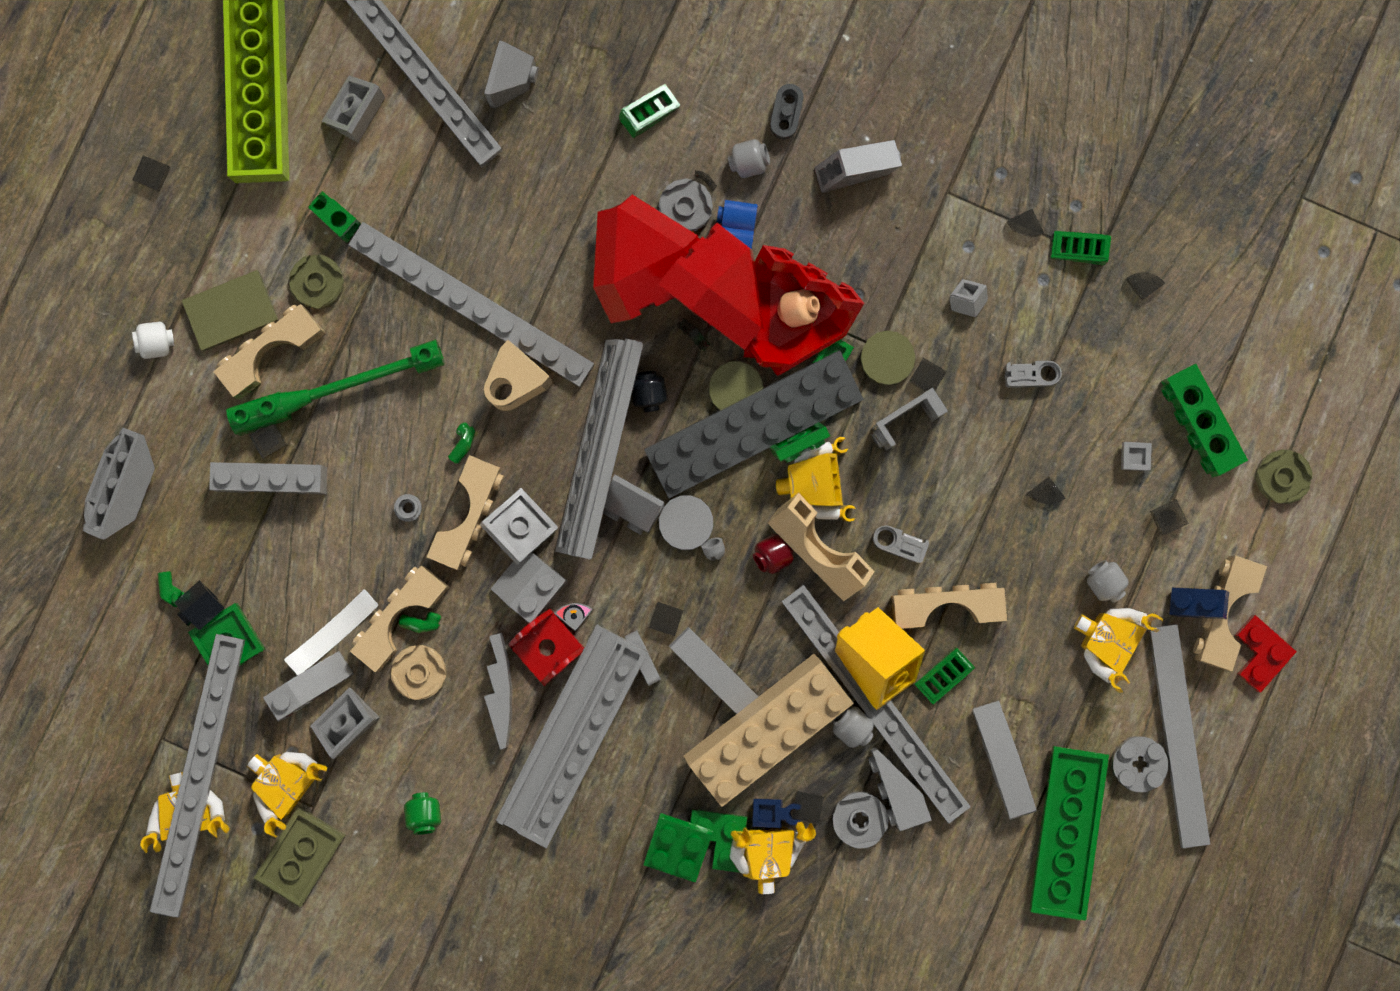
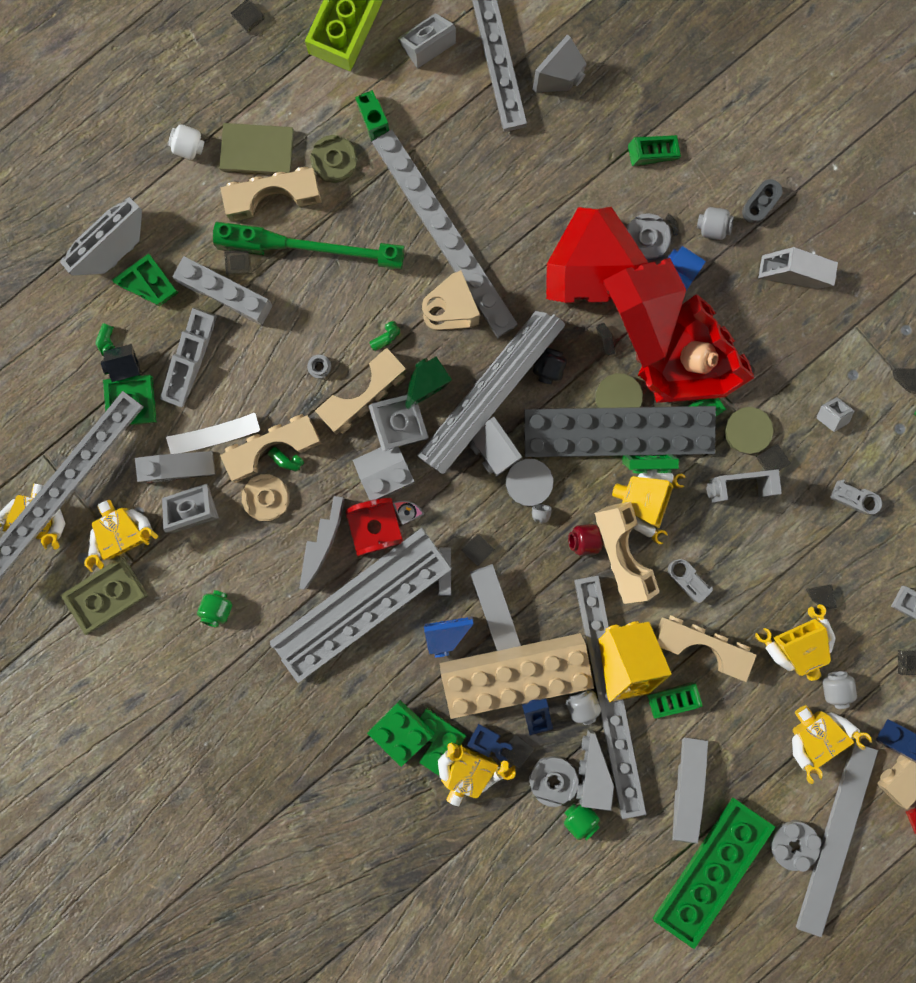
camera: 25 degrees right, 0 degrees up
(183, 506) = (147, 281): none -> green wing
(266, 565) = (188, 357): none -> light grey slope
(527, 469) = (426, 381): none -> dark green slope
(675, 723) = (446, 635): none -> blue slope
(810, 761) = (537, 716): none -> dark blue plate
(908, 847) = (581, 822): none -> green head
(1050, 555) = (803, 647): none -> yellow torso

